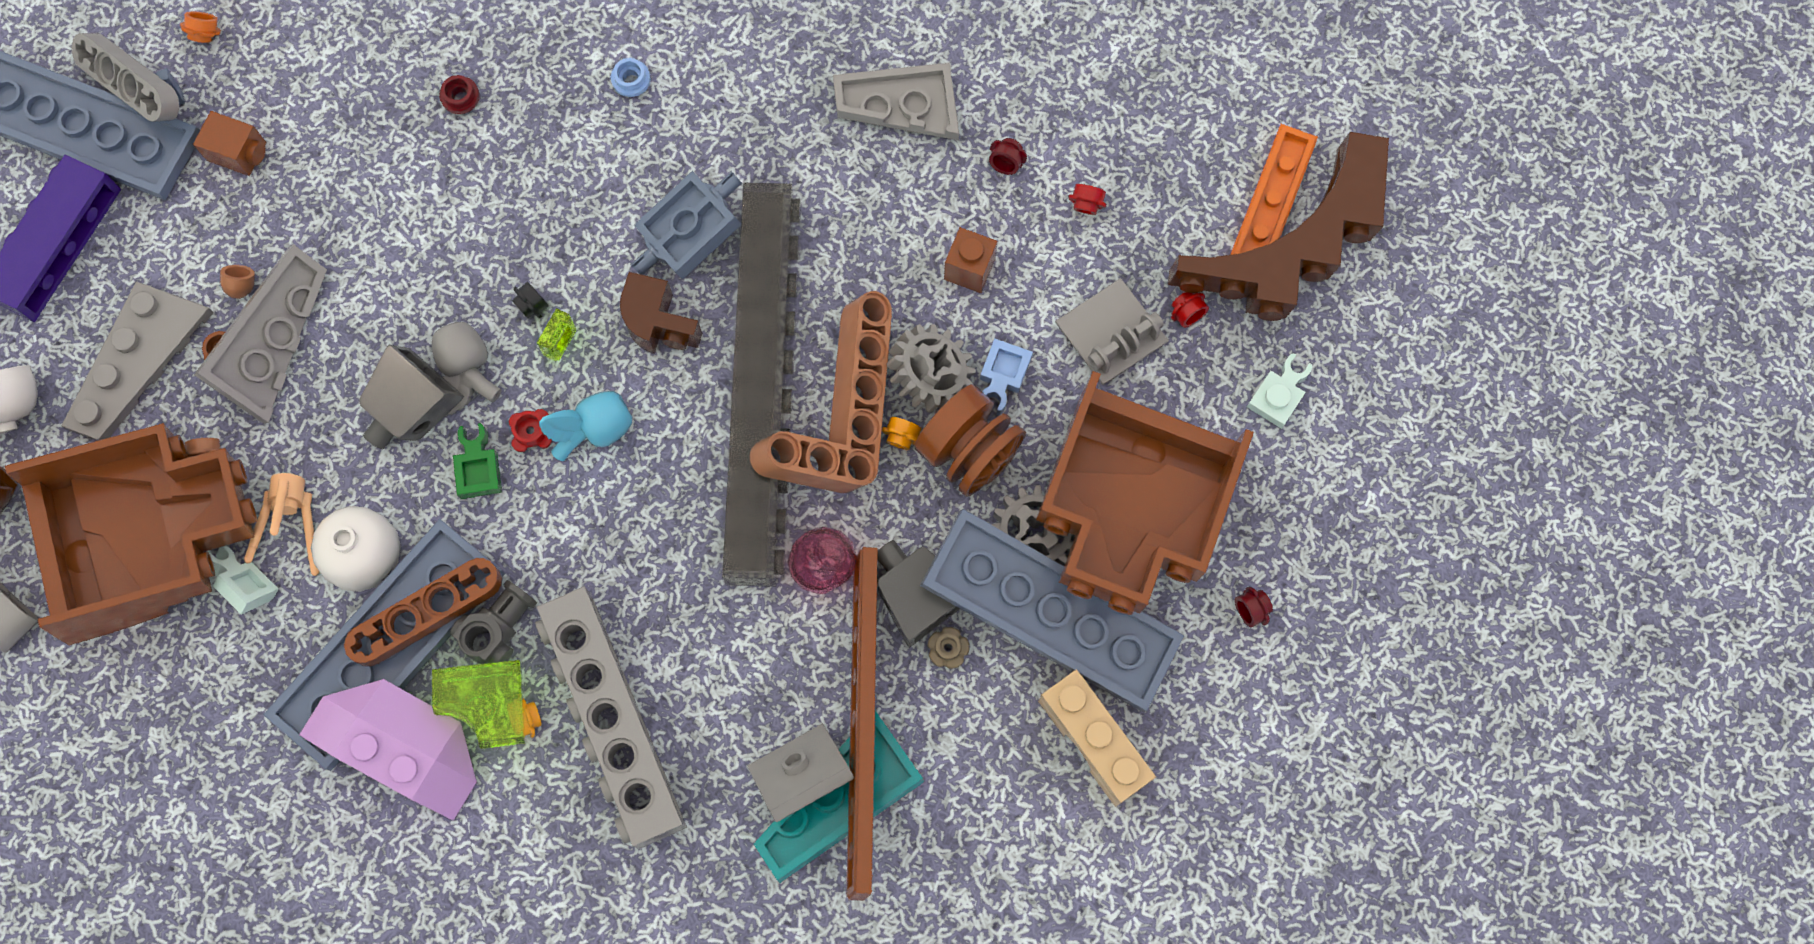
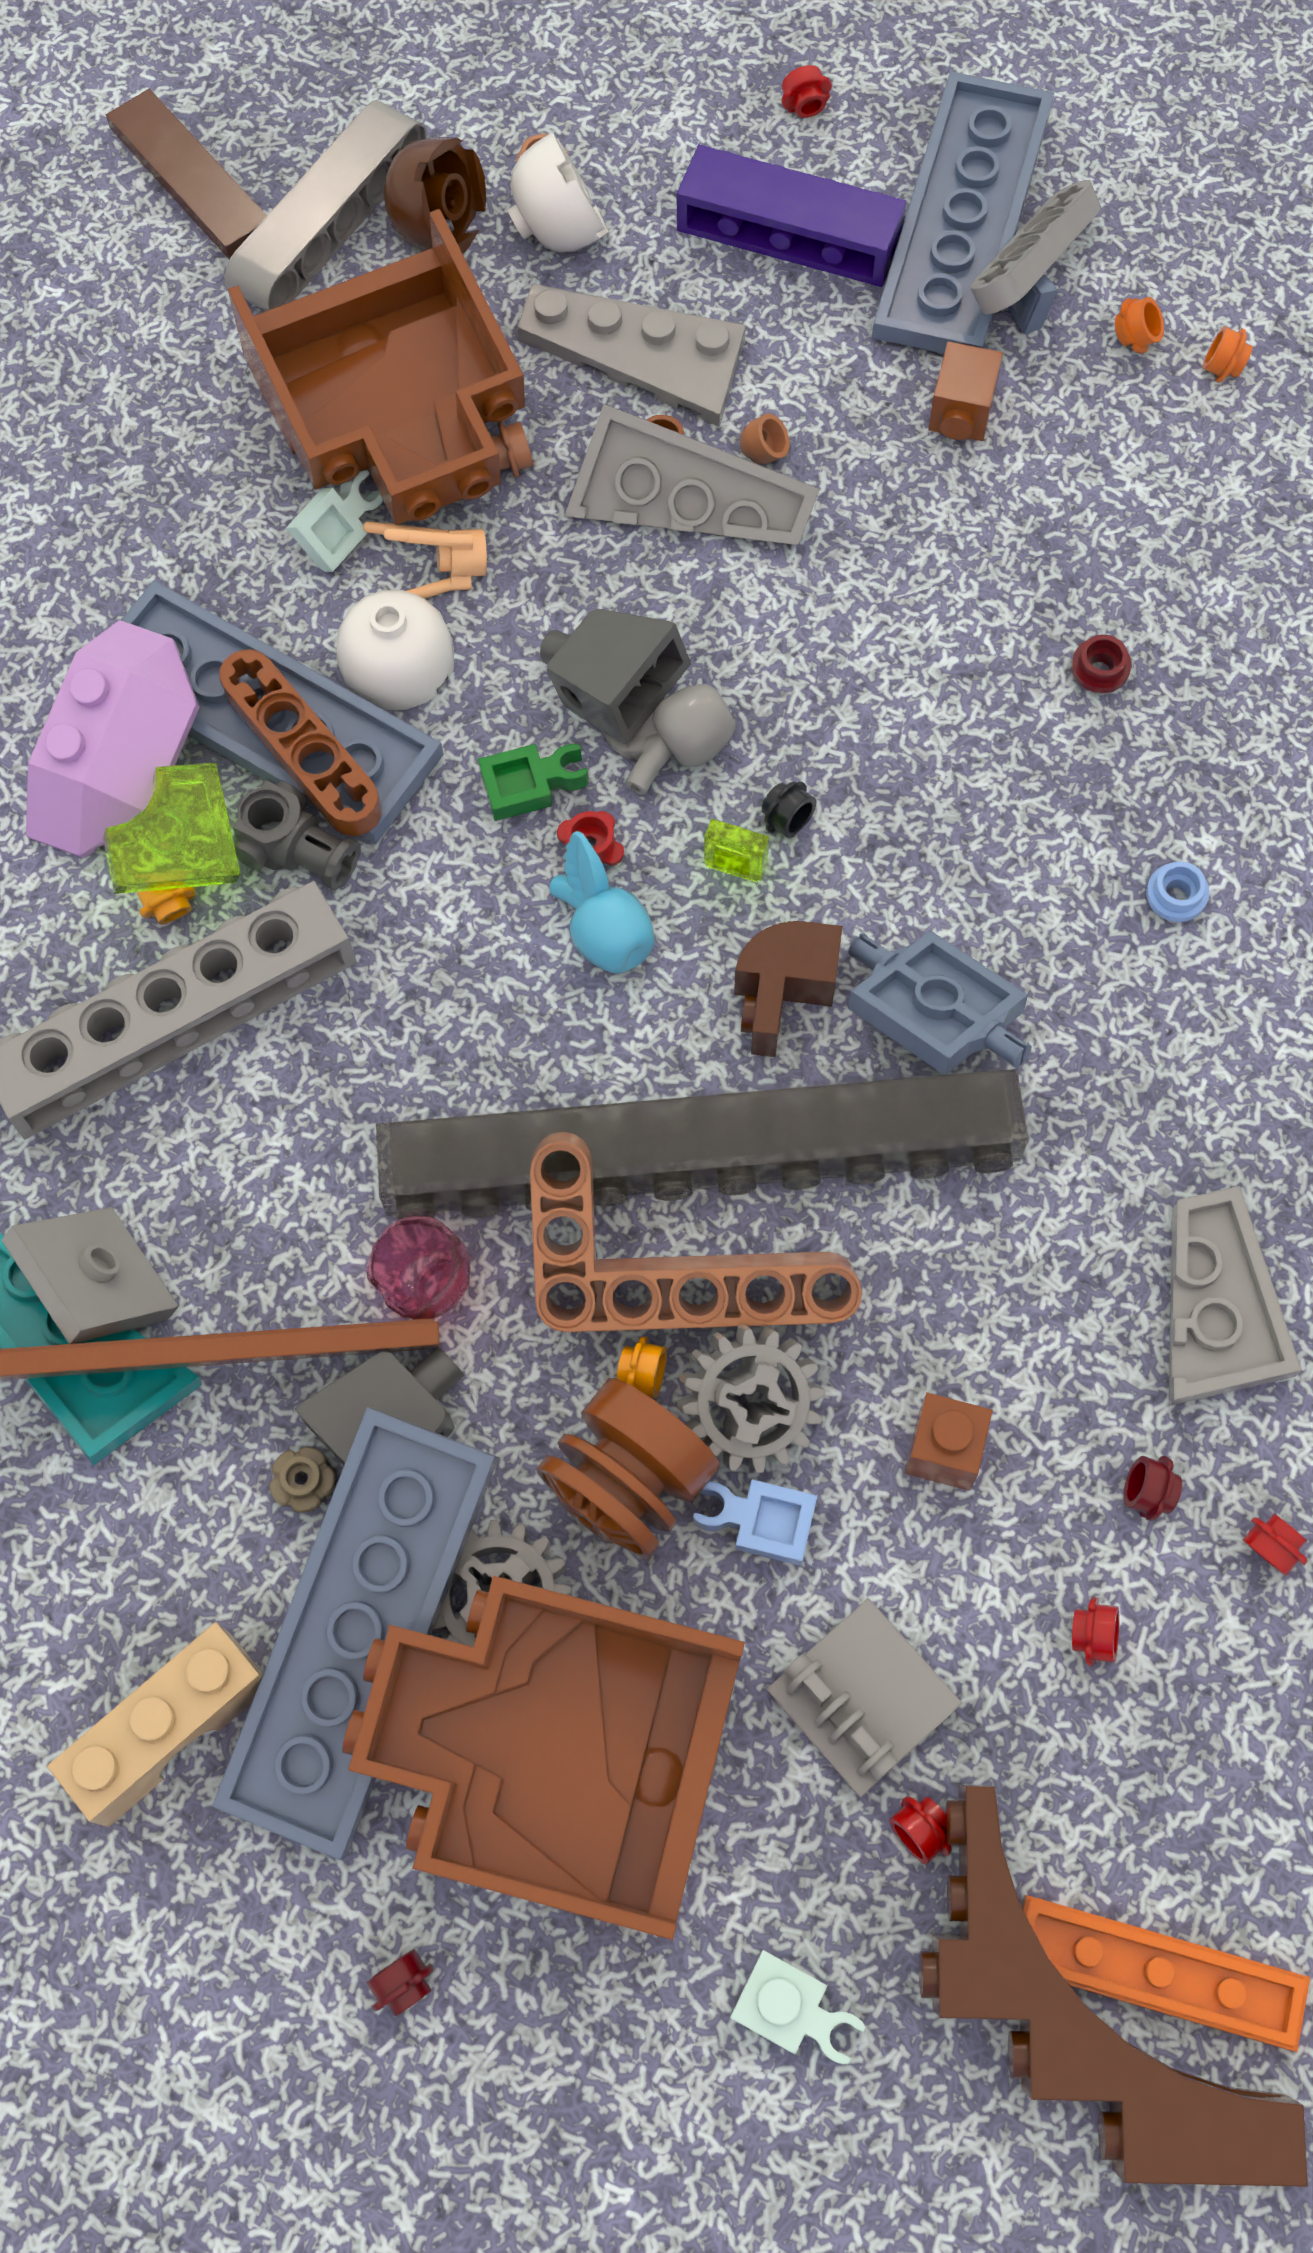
camera: 85 degrees right, 5 degrees down
(1047, 95) = (1276, 1543): none -> red plate

